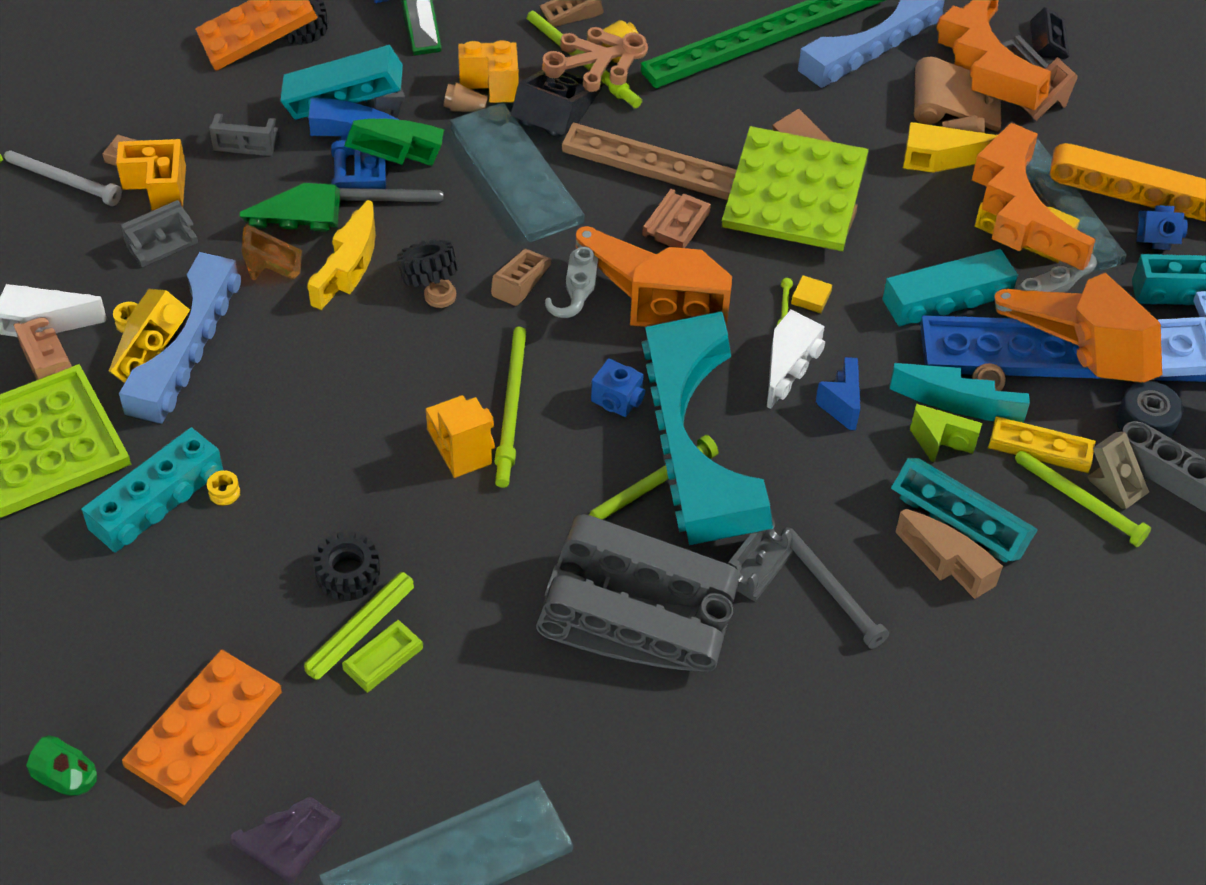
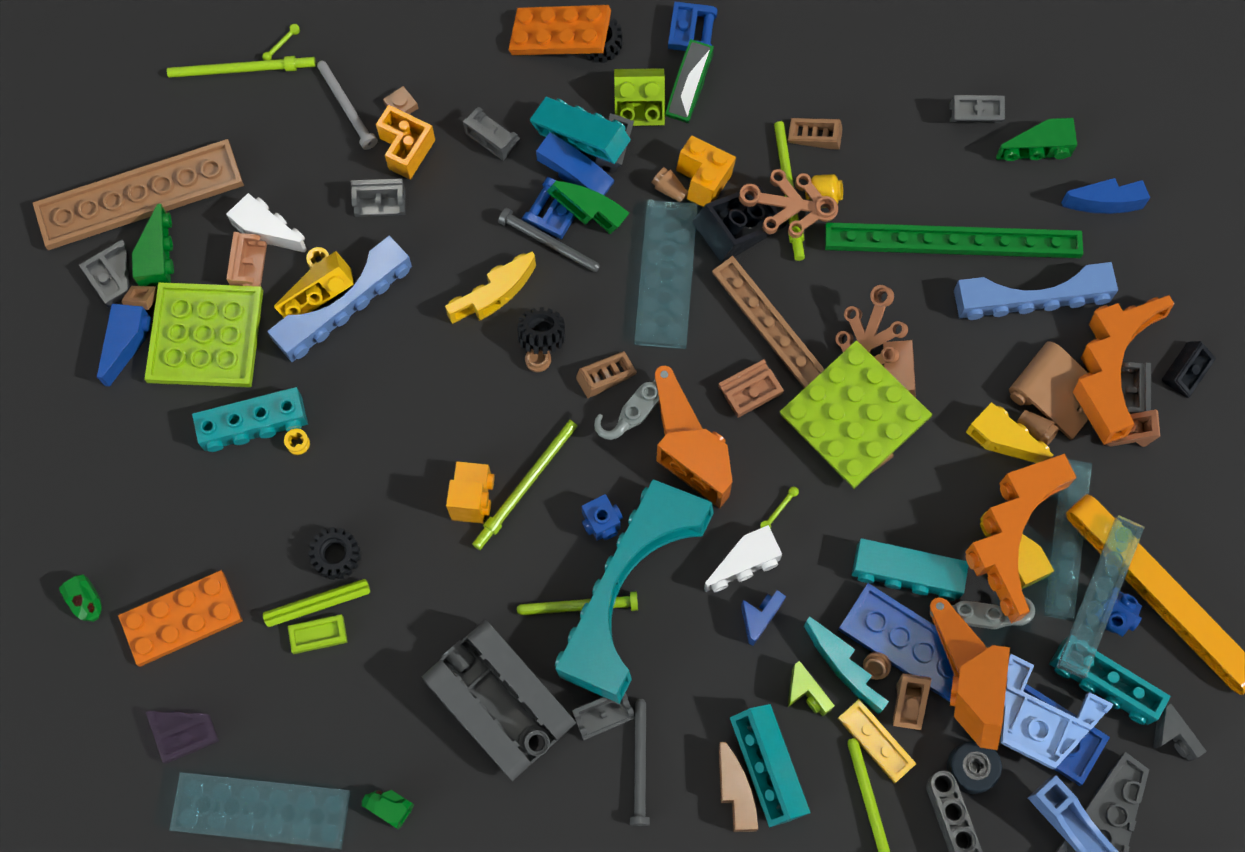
camera: 35 degrees right, 20 degrees up
(266, 251) = (439, 260): clear orange slope -> none
(301, 205) = (489, 230): green slope -> none
(379, 31) = (640, 95): none -> lime slope
(595, 774) = (388, 806): none -> green rock
(754, 111) = (870, 339): none -> nougat plant
(811, 294) = (804, 512): yellow tile -> none
(1045, 380) = (911, 701): none -> medium nougat slope
(1118, 471) = (909, 802): dark tan slope -> none
(1142, 209) = (1100, 597): none -> clear light blue plate

